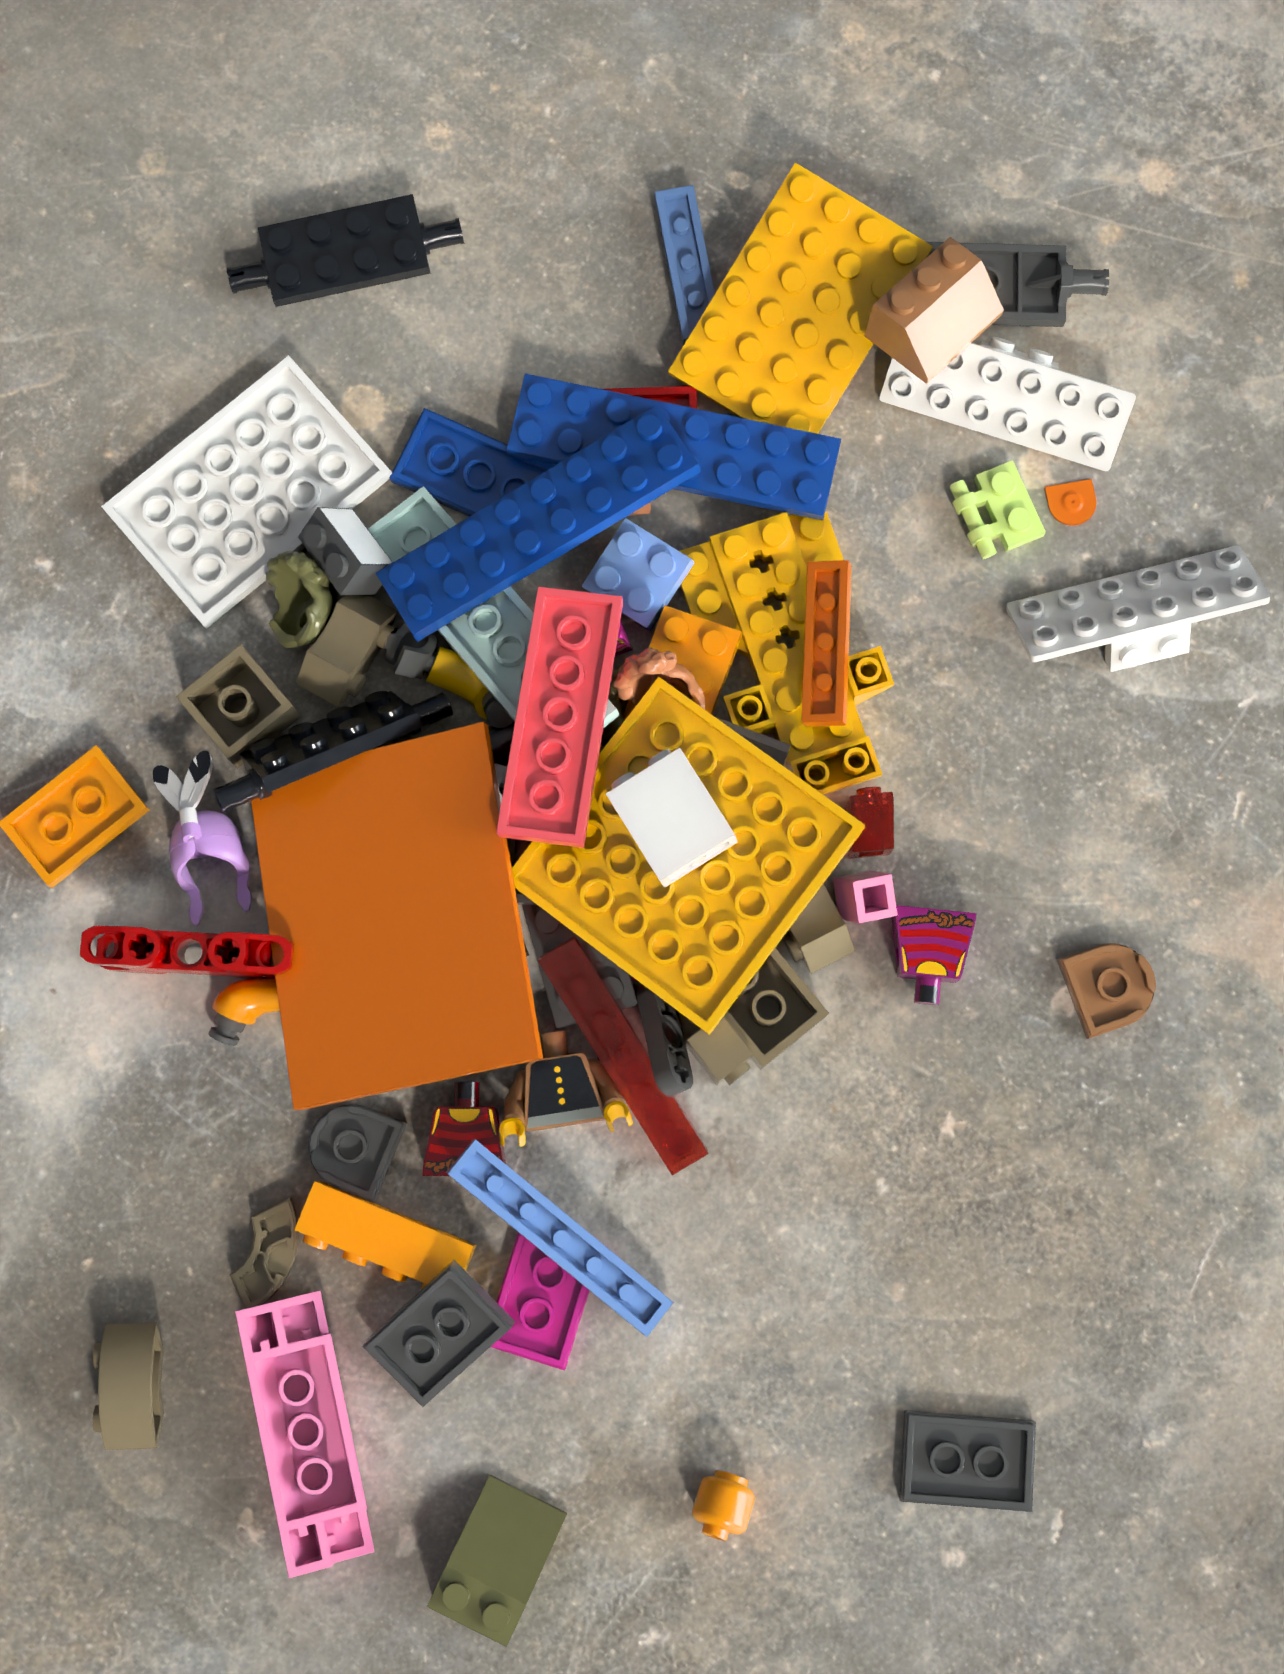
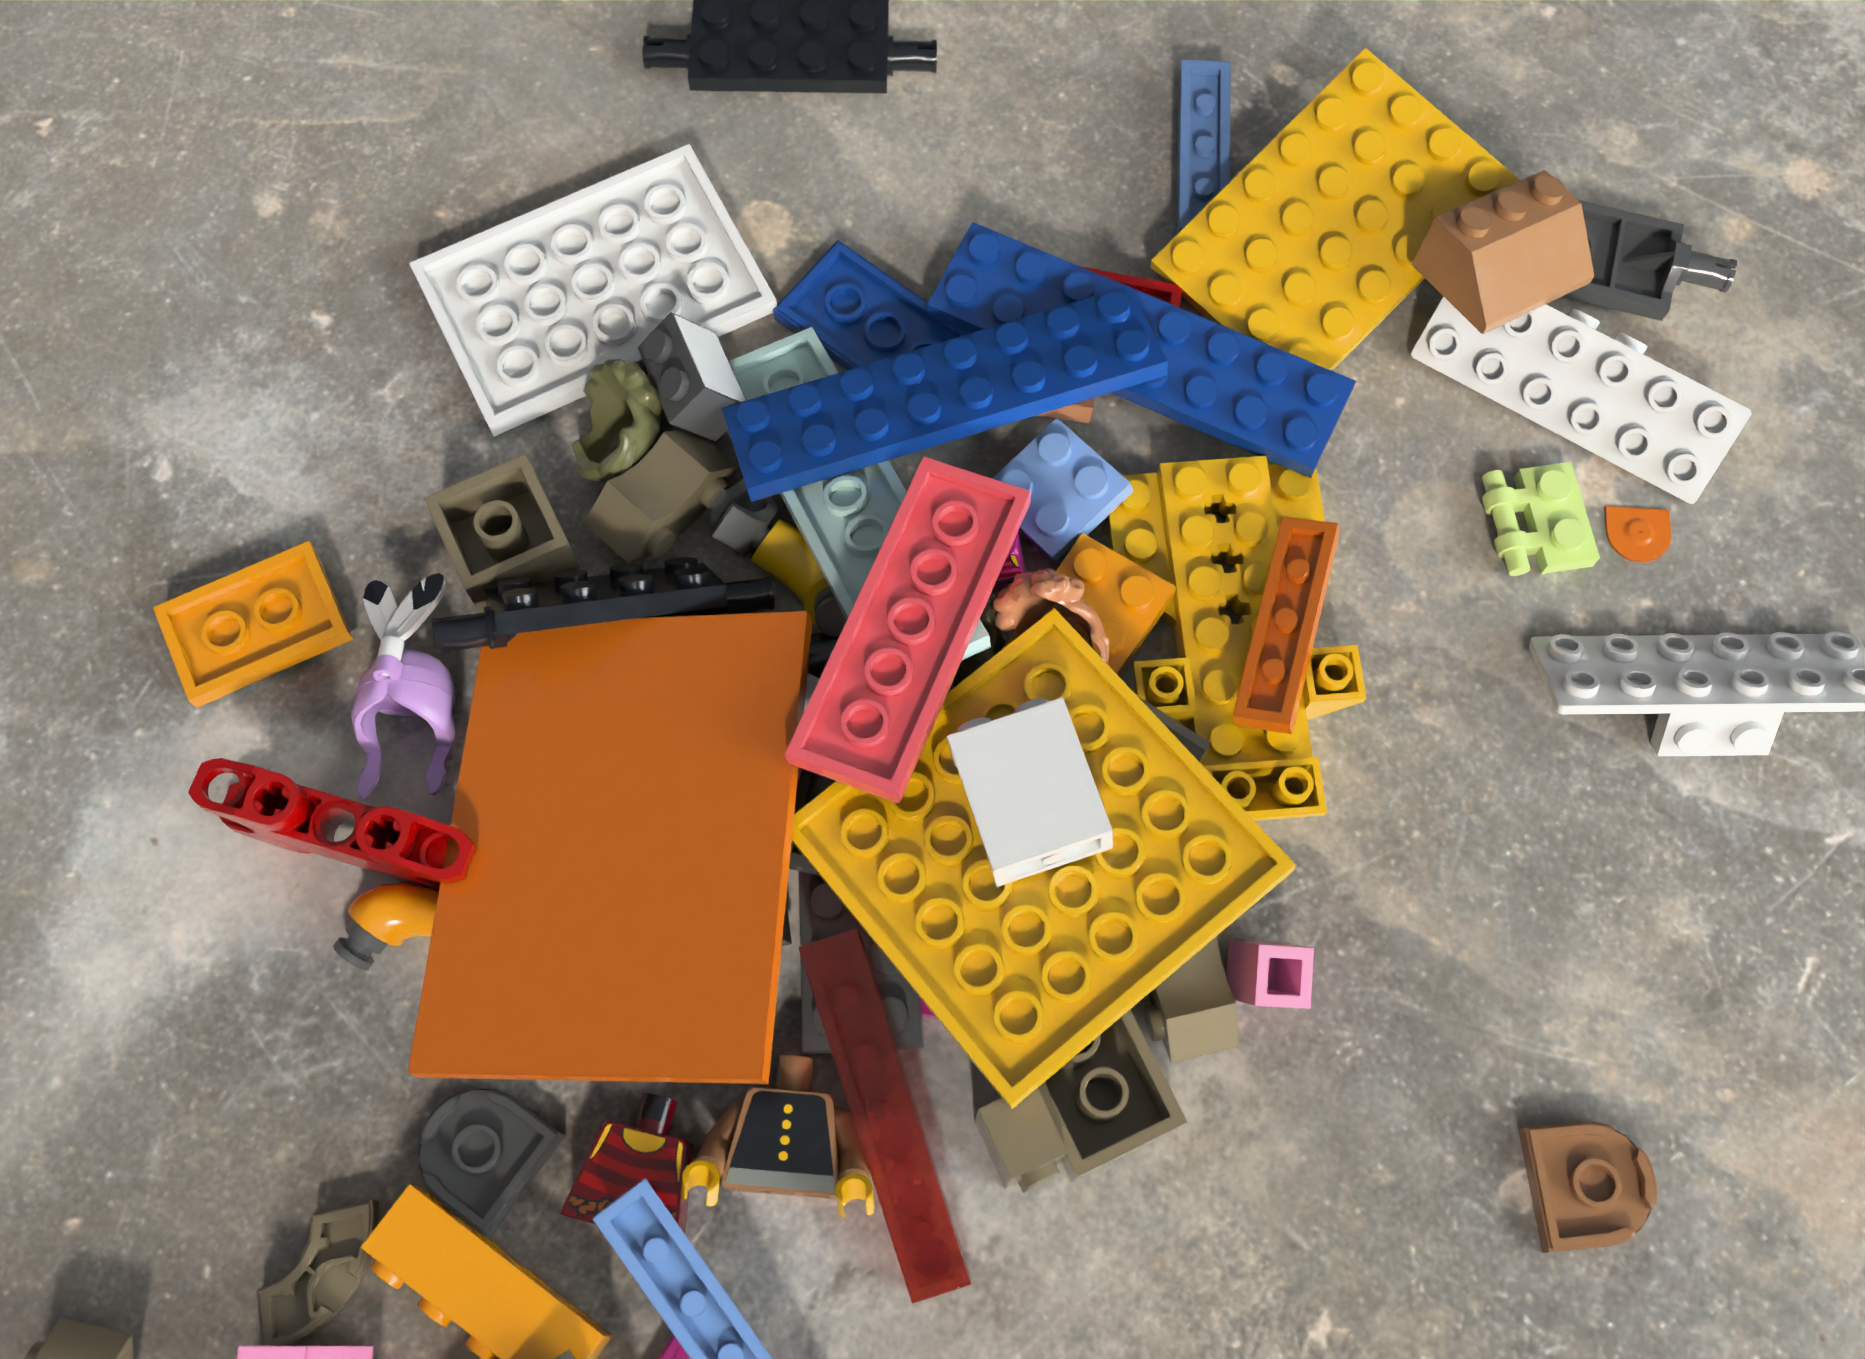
camera: 10 degrees right, 10 degrees down
(664, 1043) = (946, 1109): dark grey beam -> none
(877, 813) = (1304, 892): clear red slope -> none
(931, 948) = (1346, 1067): torso -> none

